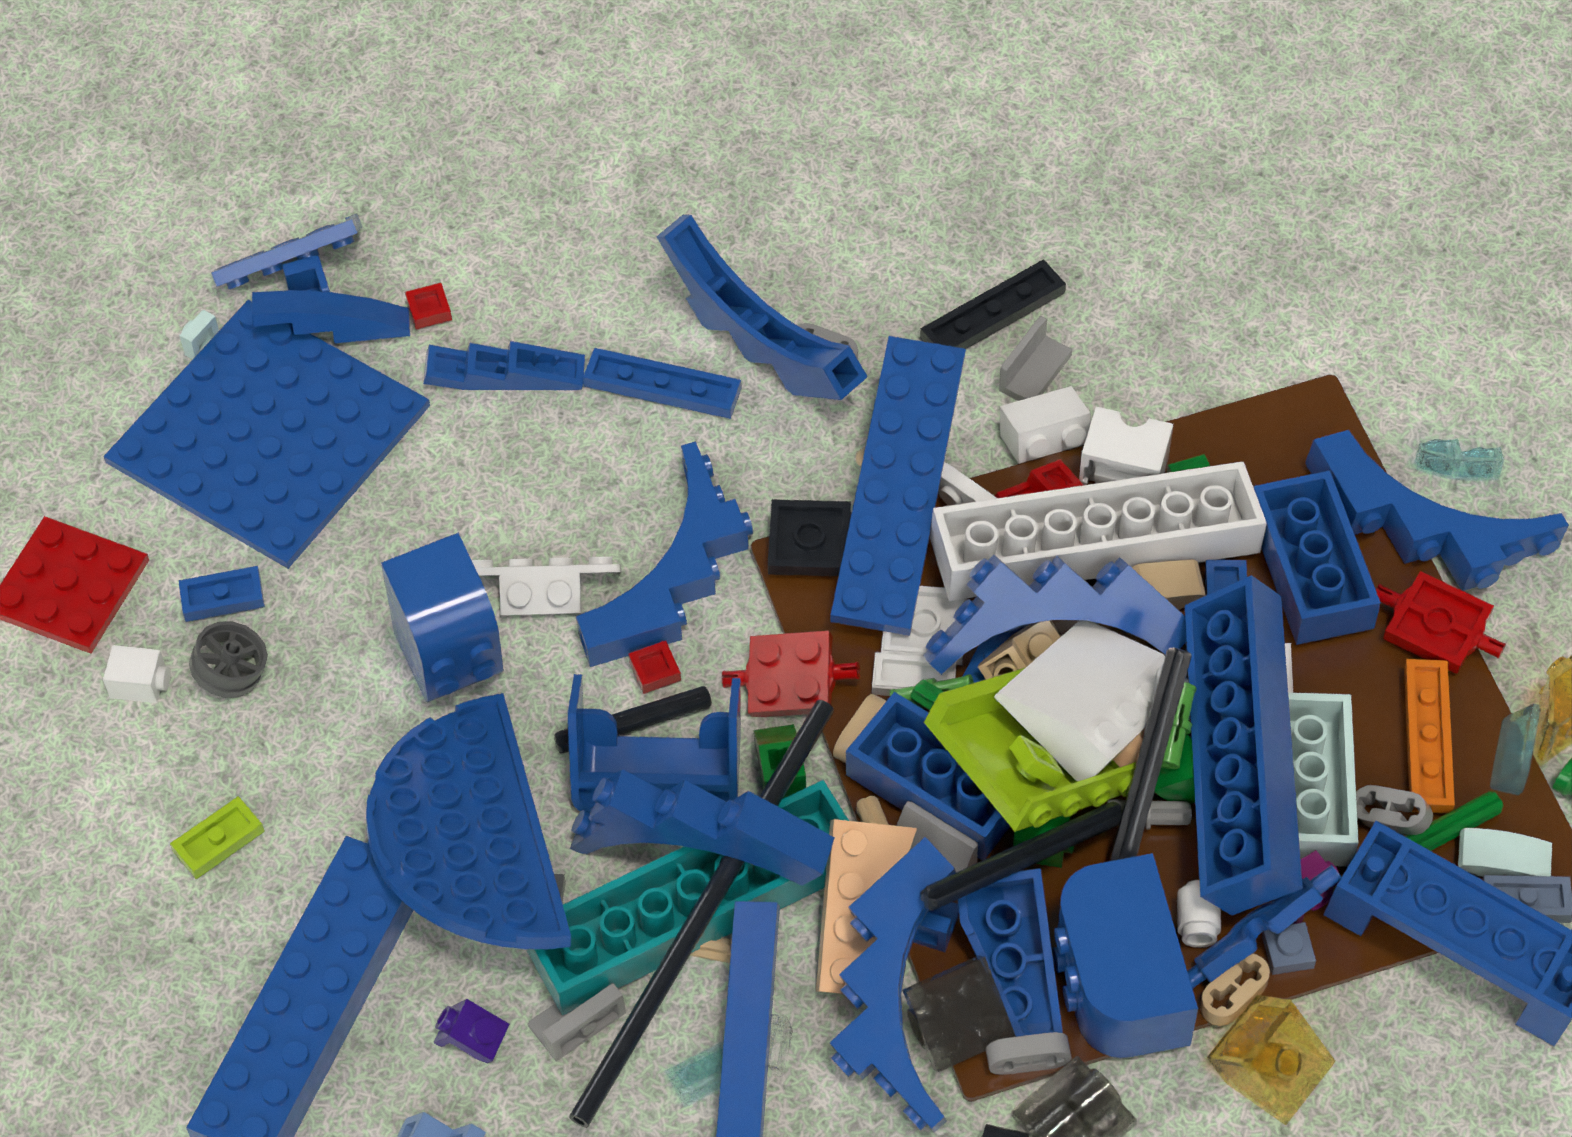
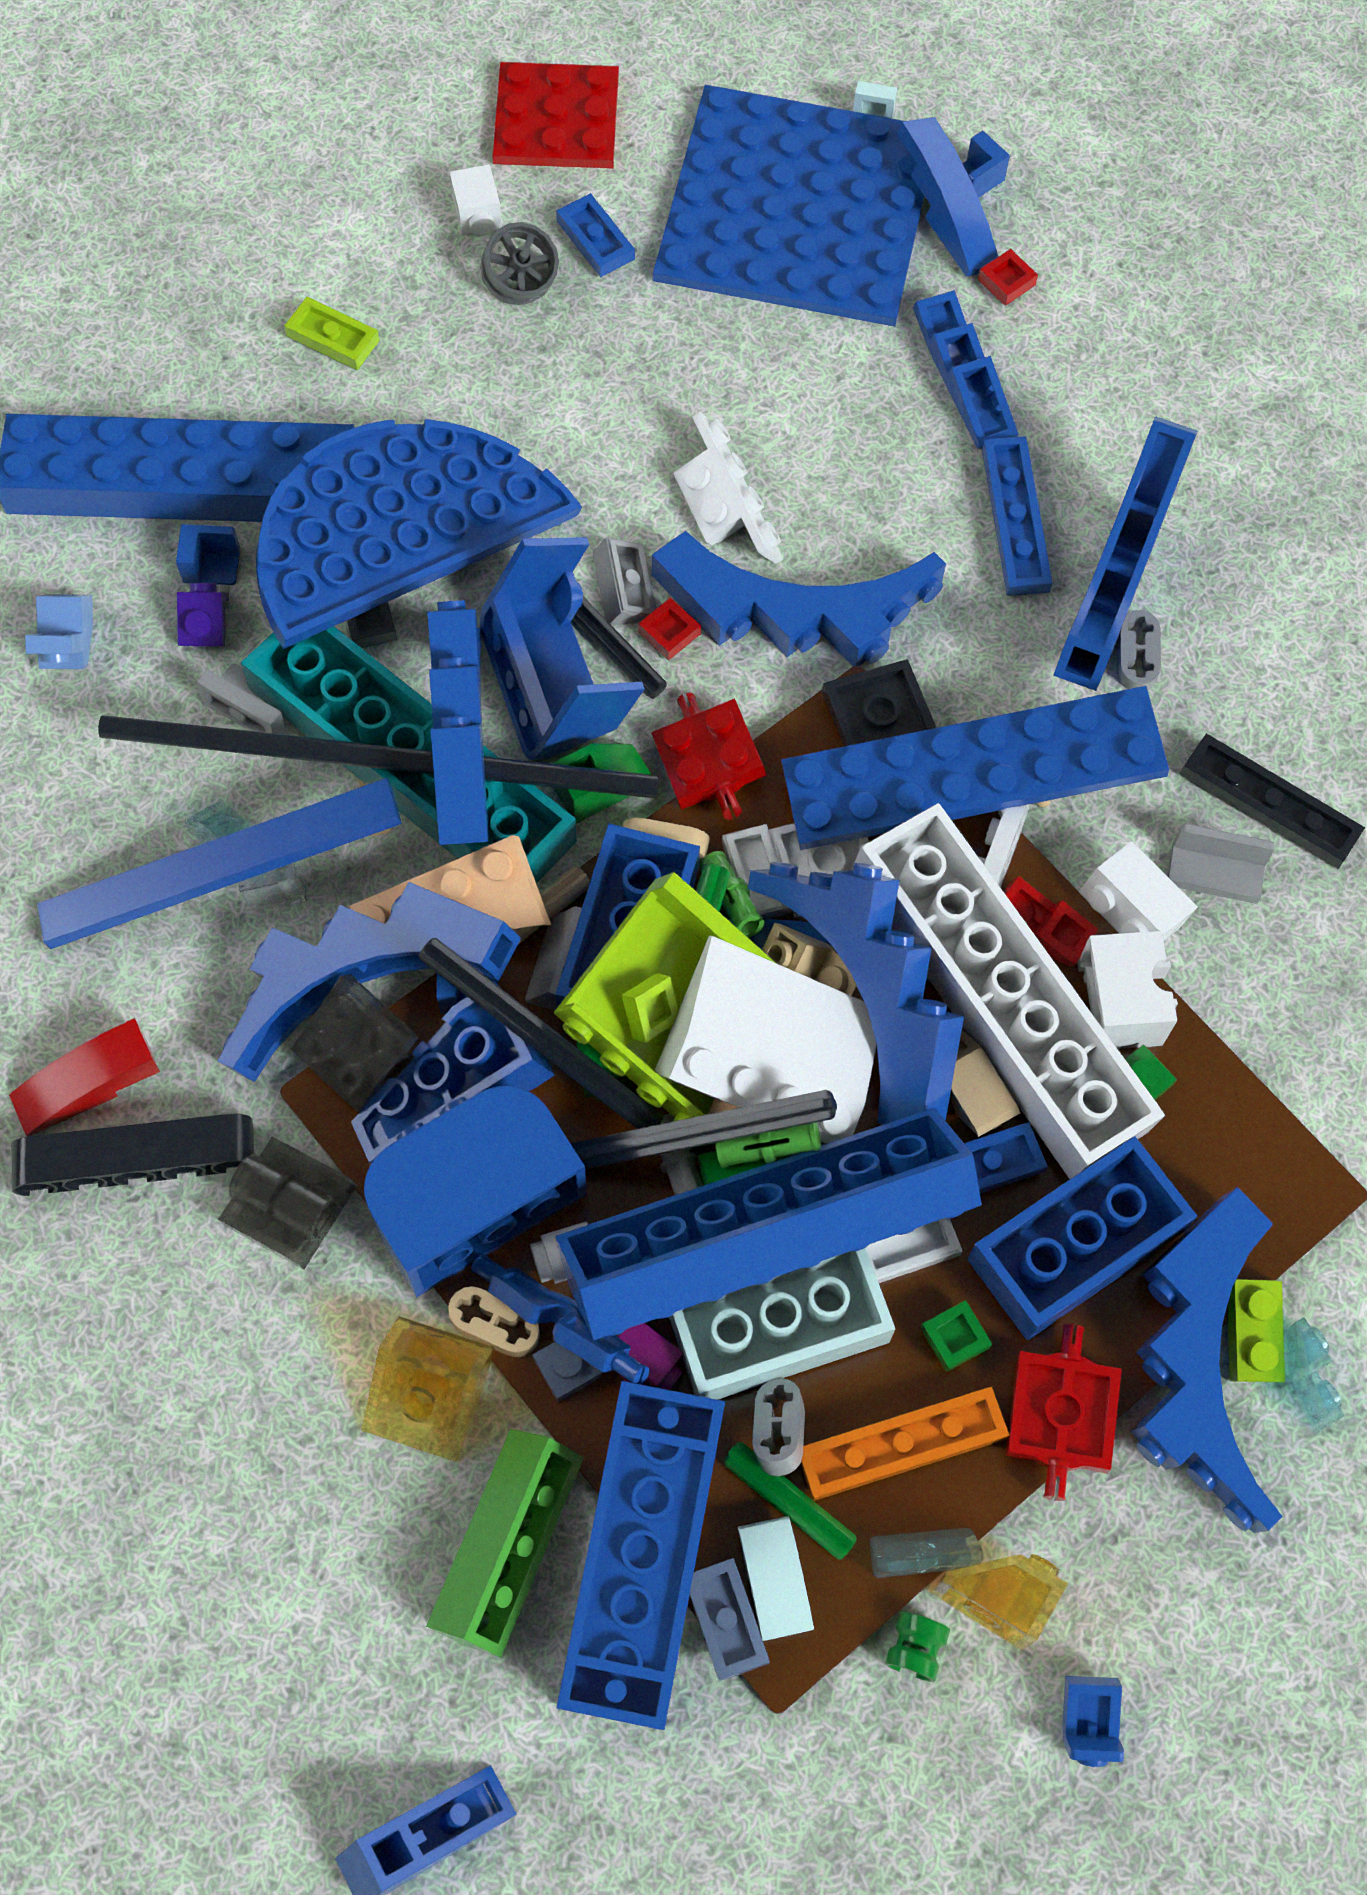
camera: 65 degrees right, 10 degrees up
(271, 261) = (1014, 140): wing -> none
(409, 1008) = (208, 554): none -> blue panel
(442, 617) = (606, 401): blue brick -> none
(601, 688) = (623, 581): none -> light grey slope
(1028, 1053) = (338, 1130): light grey beam -> none
(1357, 670) = (956, 1336): none -> green plate
(1418, 477) = (1256, 1331): none -> lime plate
(1419, 1034) = (505, 1542): none -> bright green brick

